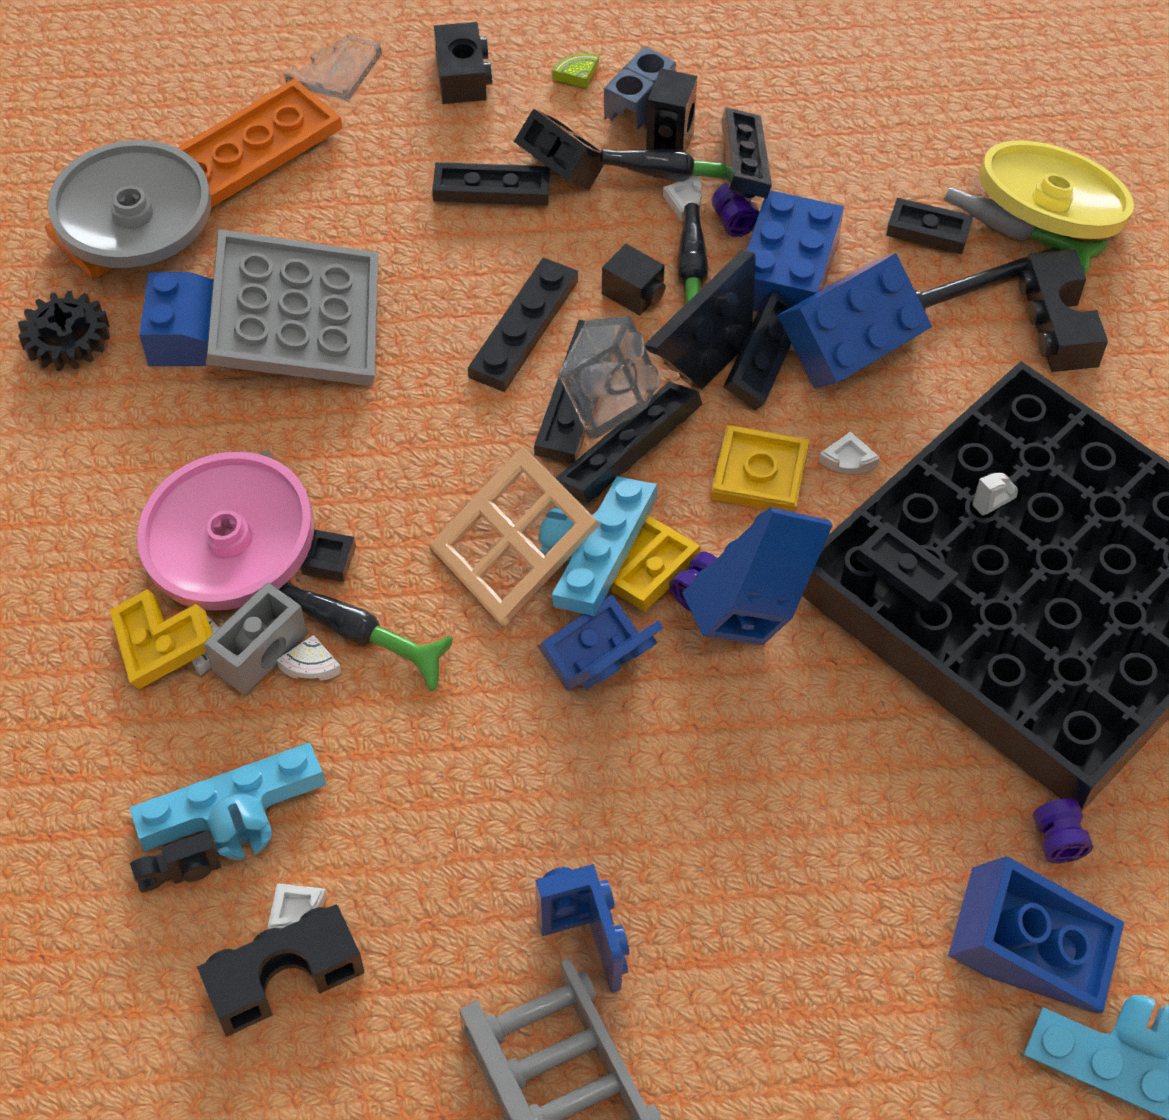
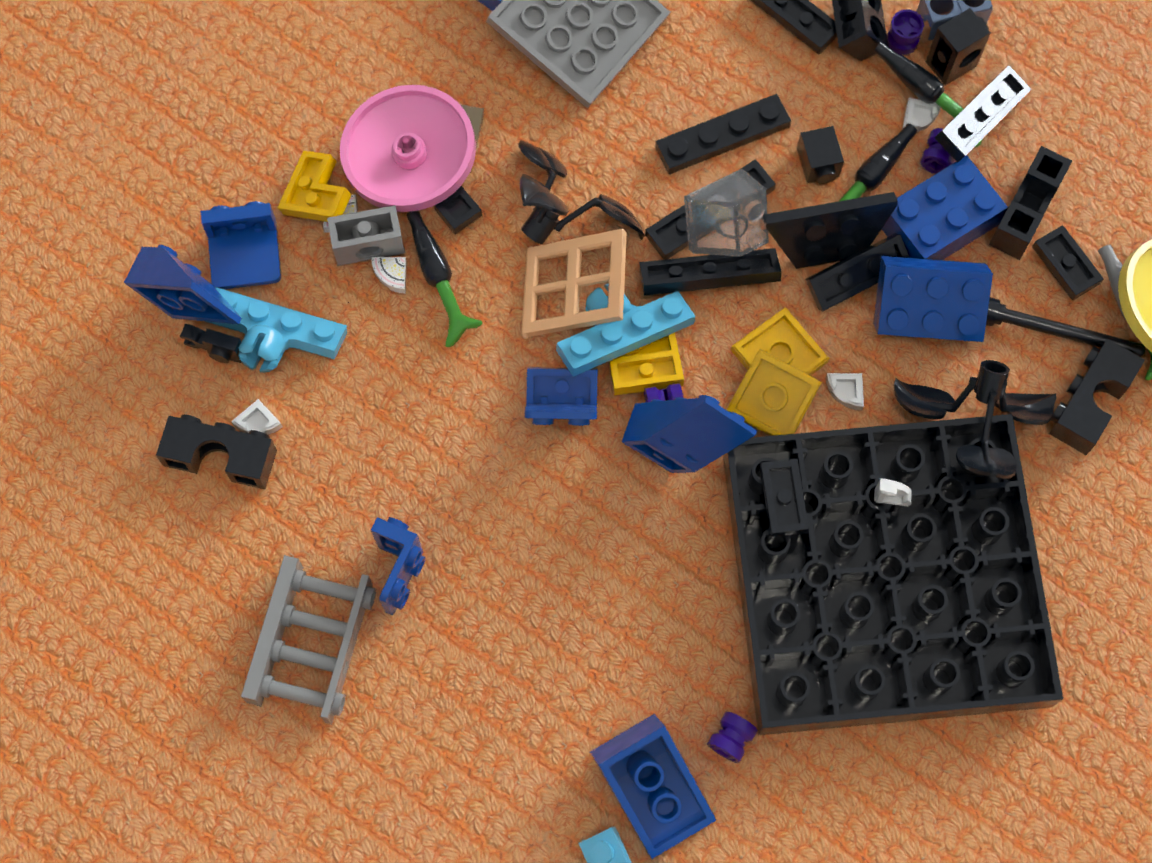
camera: 40 degrees right, 15 degrees up
(99, 823) = (177, 287): none -> blue slope
(122, 744) = (242, 245): none -> blue bracket
(426, 502) = (549, 207): none -> black plant
(610, 131) = (905, 31): none -> dark purple wheel
(796, 486) = (774, 395): none -> yellow tile
(846, 181) = (1030, 203): none -> black arch
(987, 349) = (989, 389): none -> black plant

